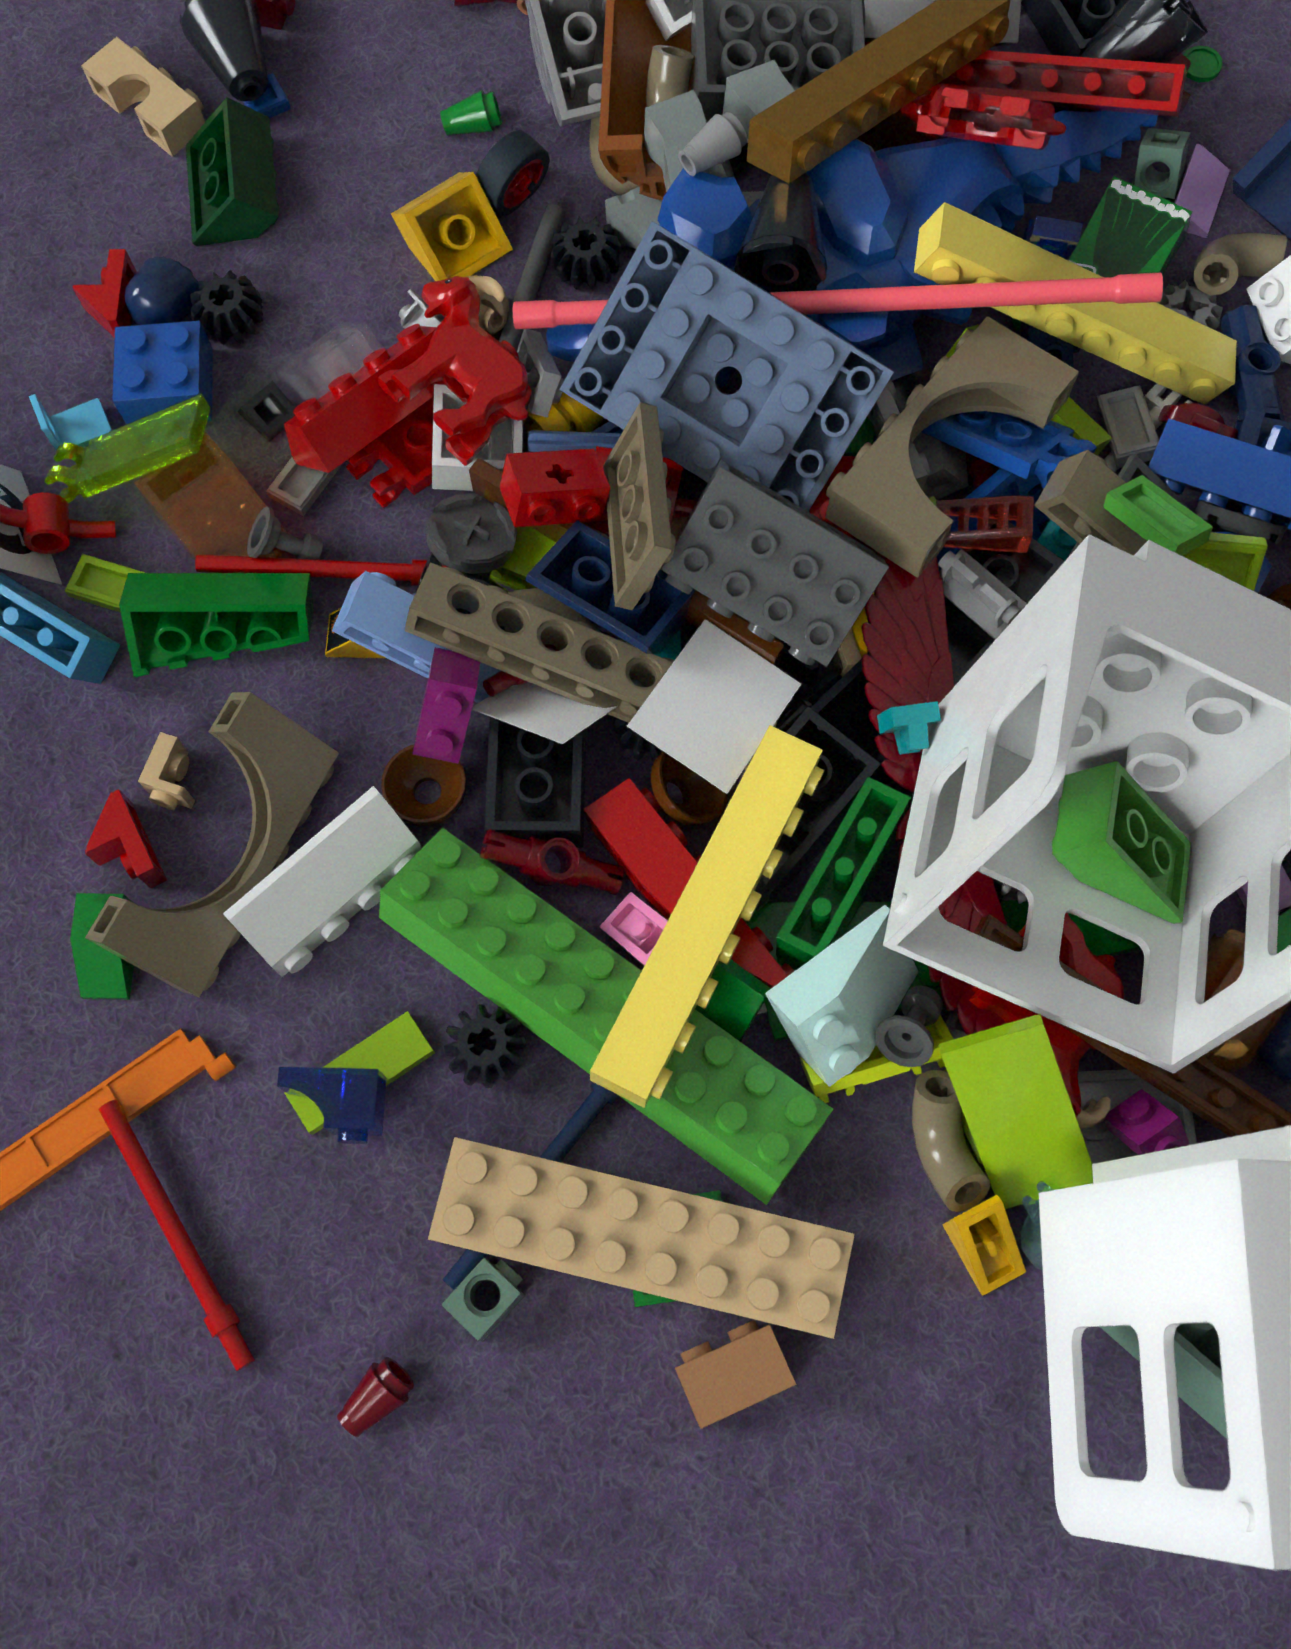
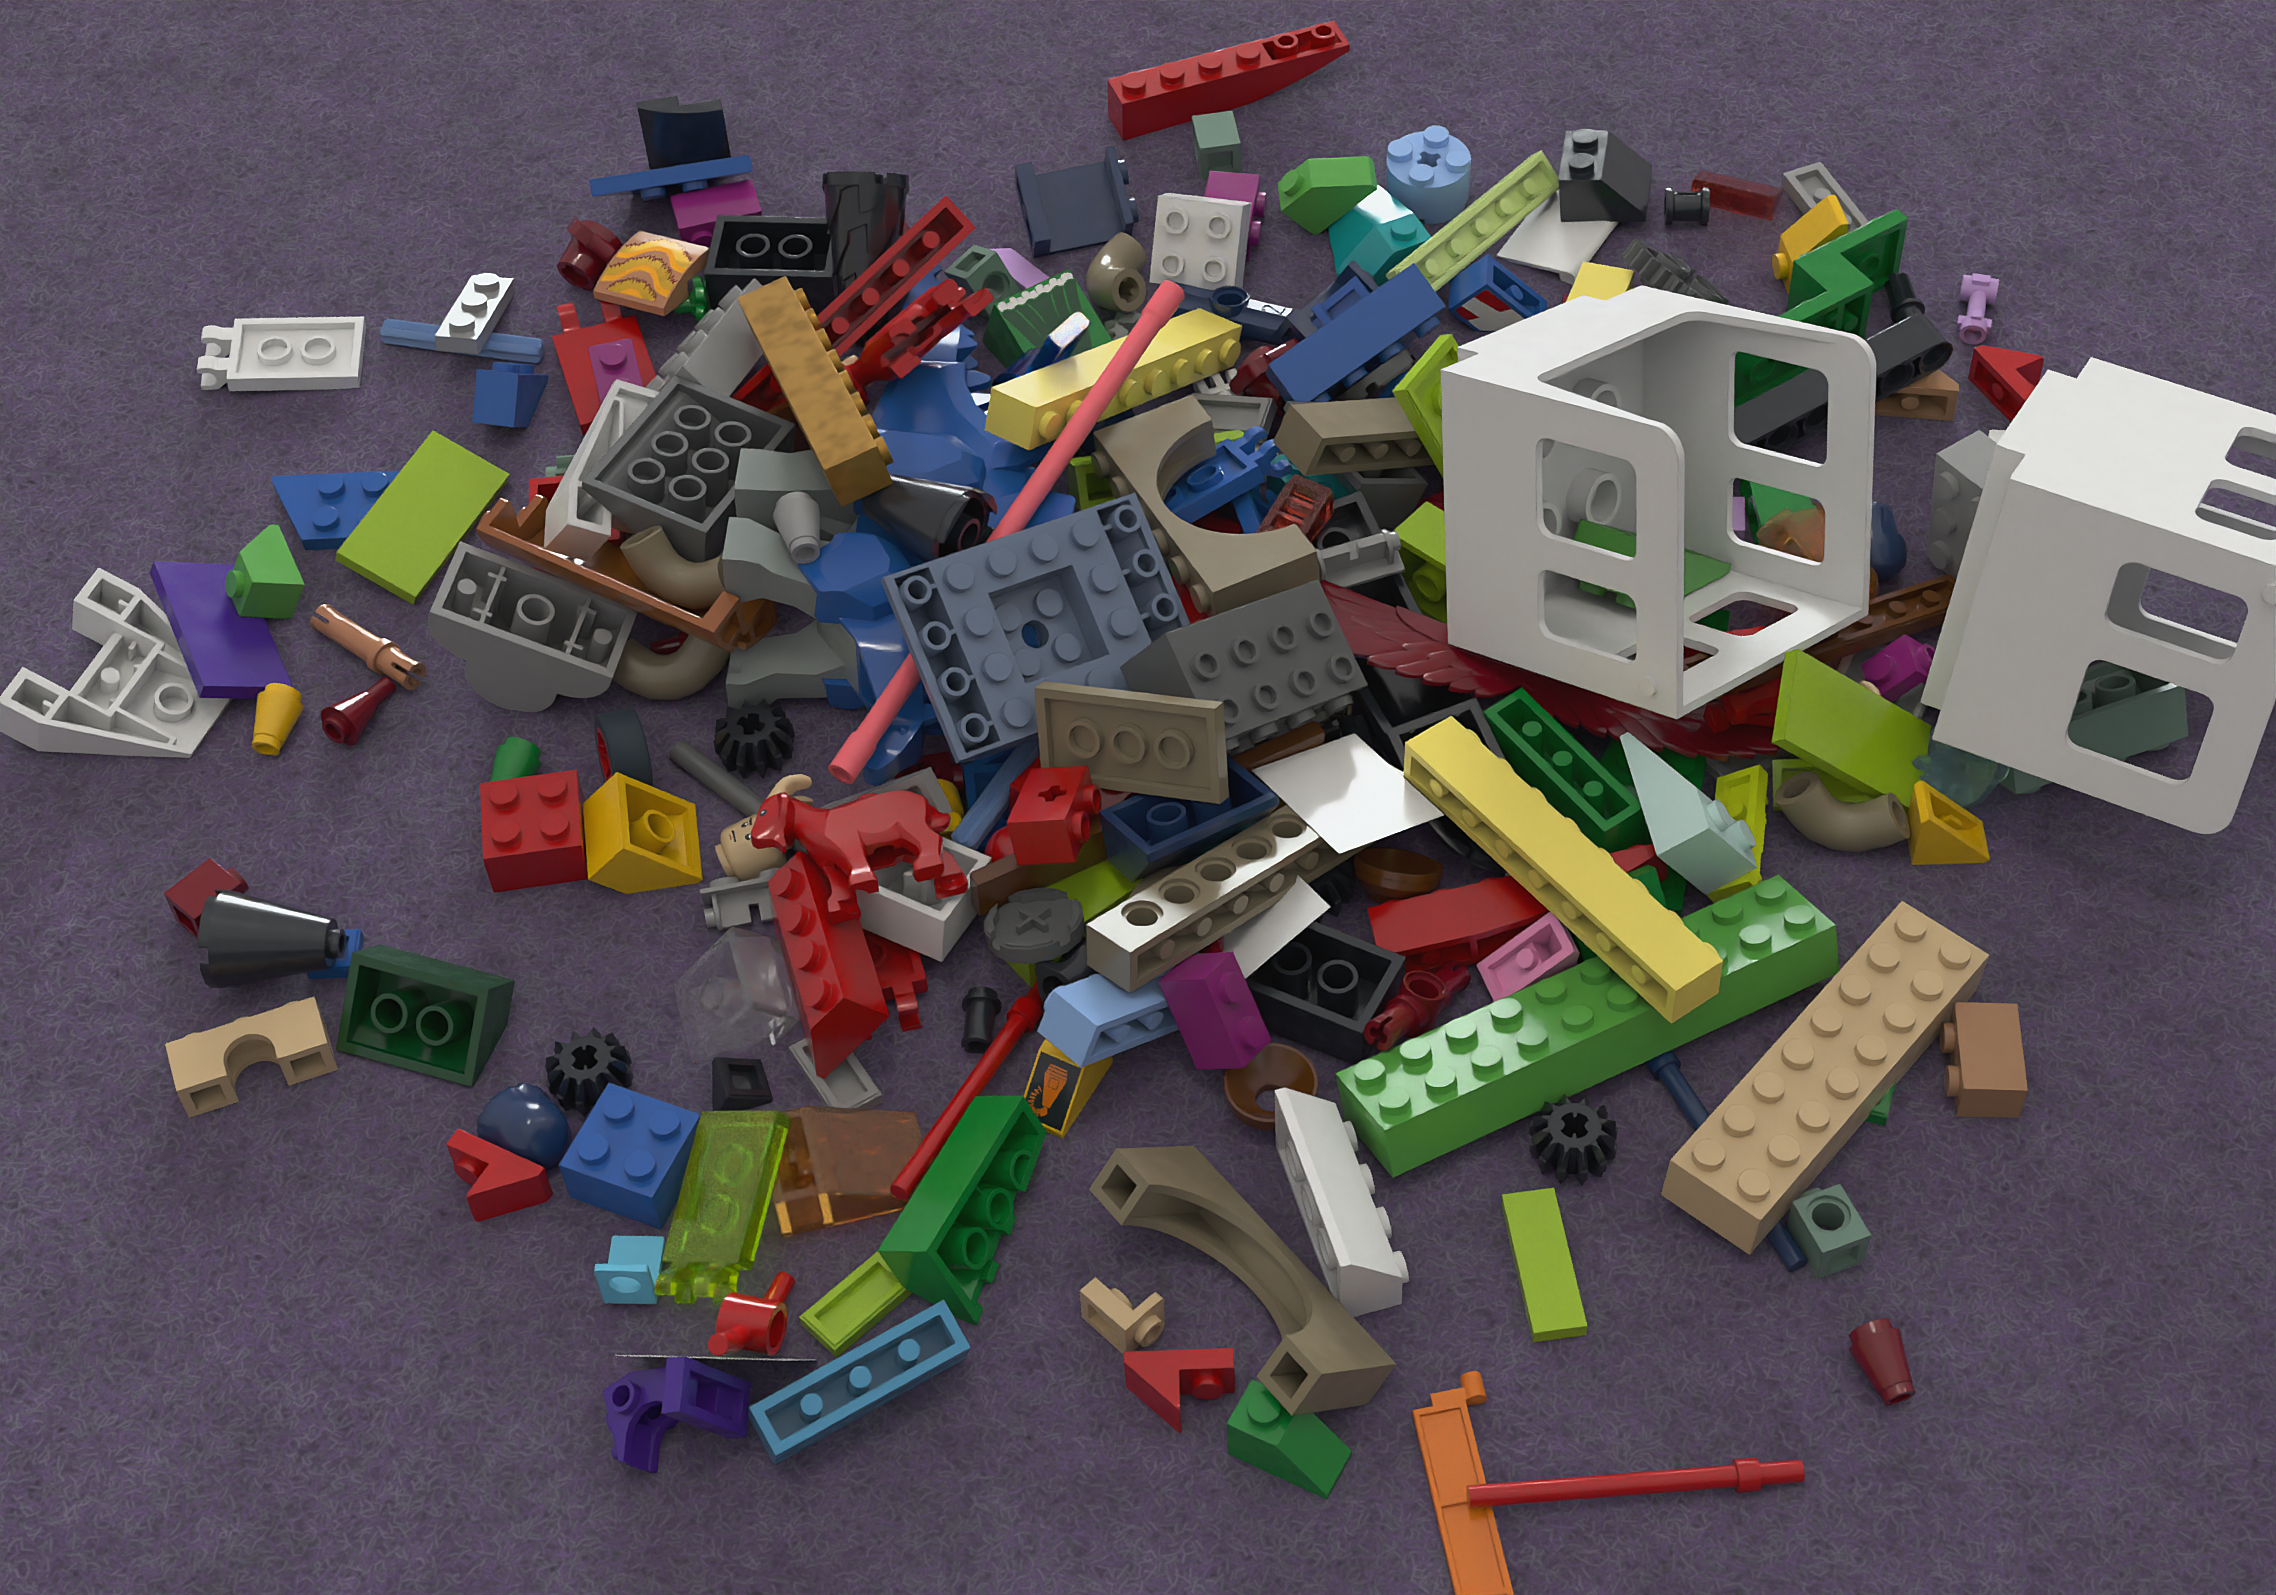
camera: 65 degrees left, 20 degrees down
(267, 535) = (909, 1114): dark grey piece -> none
(347, 1097) = (1574, 1266): clear blue arch -> none
(399, 543) = (981, 1009): none -> black pin
(417, 150) = (533, 831): none -> red brick
(906, 1037) = (1742, 786): dark grey piece -> none
(909, 725) = (1458, 650): teal tile -> none
(1157, 516) = (1382, 388): bright green tile -> none

